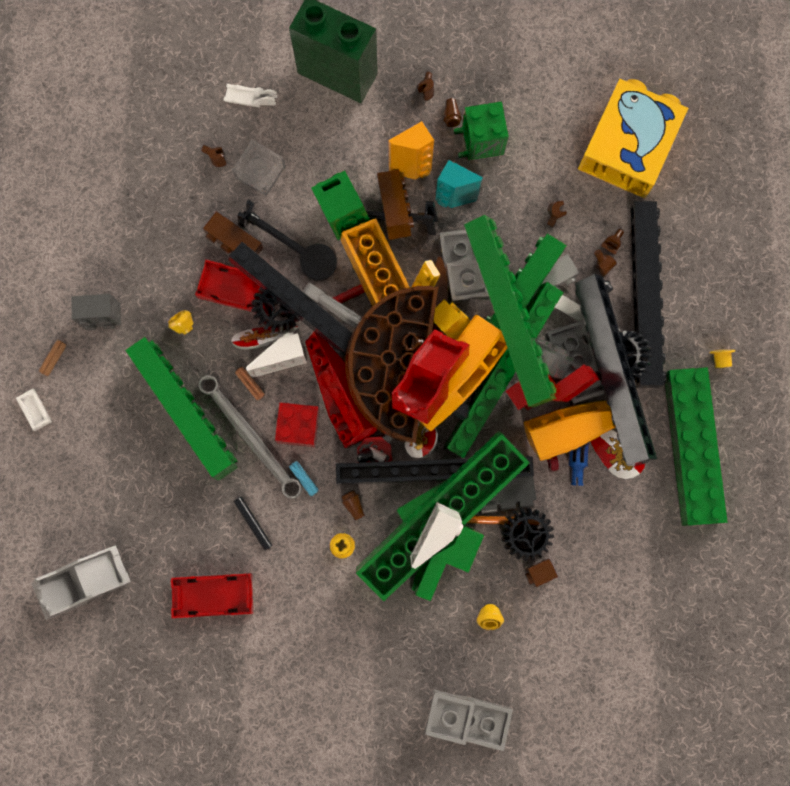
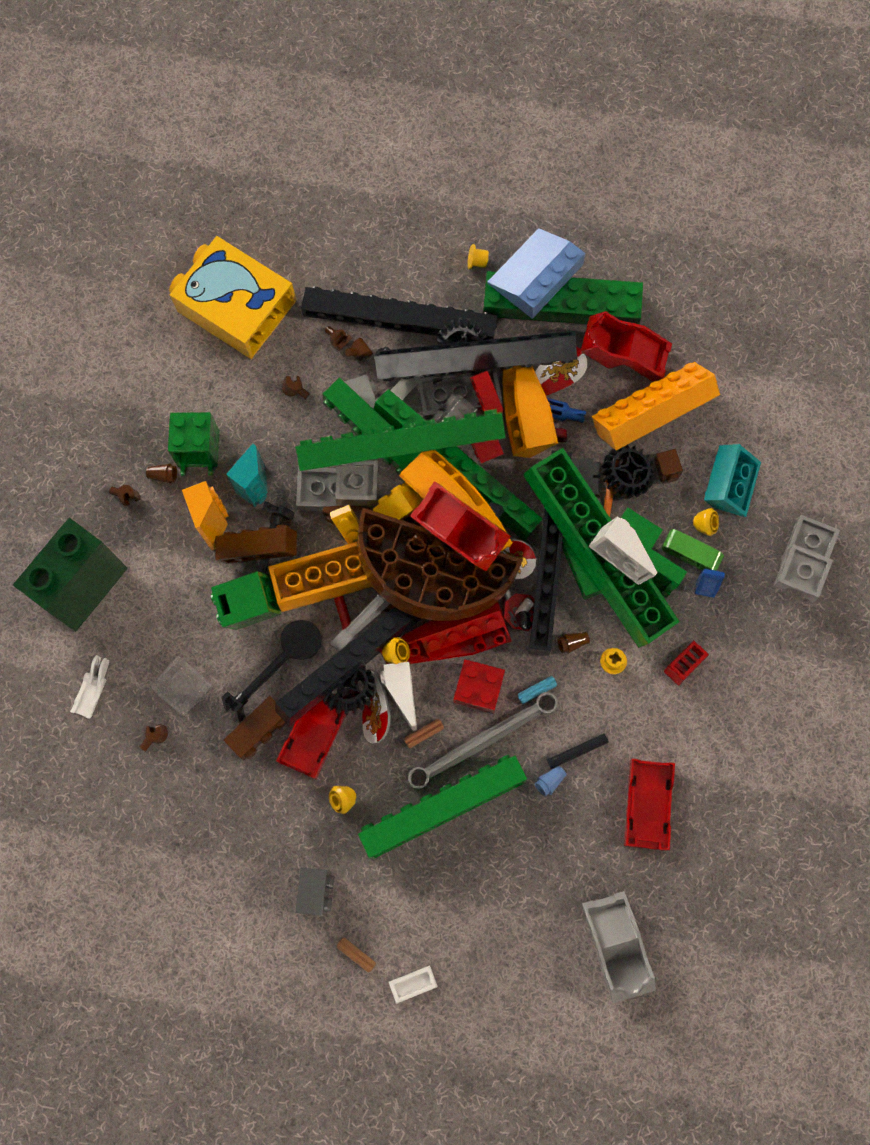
camera: 75 degrees left, 5 degrees down
(222, 502) = (549, 781): none -> medium blue cone
(312, 343) = (396, 651): none -> yellow cone
(335, 605) = (677, 672): none -> red slope
(427, 626) = (709, 582): none -> blue slope
(458, 607) = (691, 550): none -> bright green beam
(538, 638) = (732, 479): none -> teal slope
(599, 552) = (655, 405): none -> light orange brick
(657, 514) = (625, 343): none -> red piece
(715, 415) = (537, 271): none -> slope

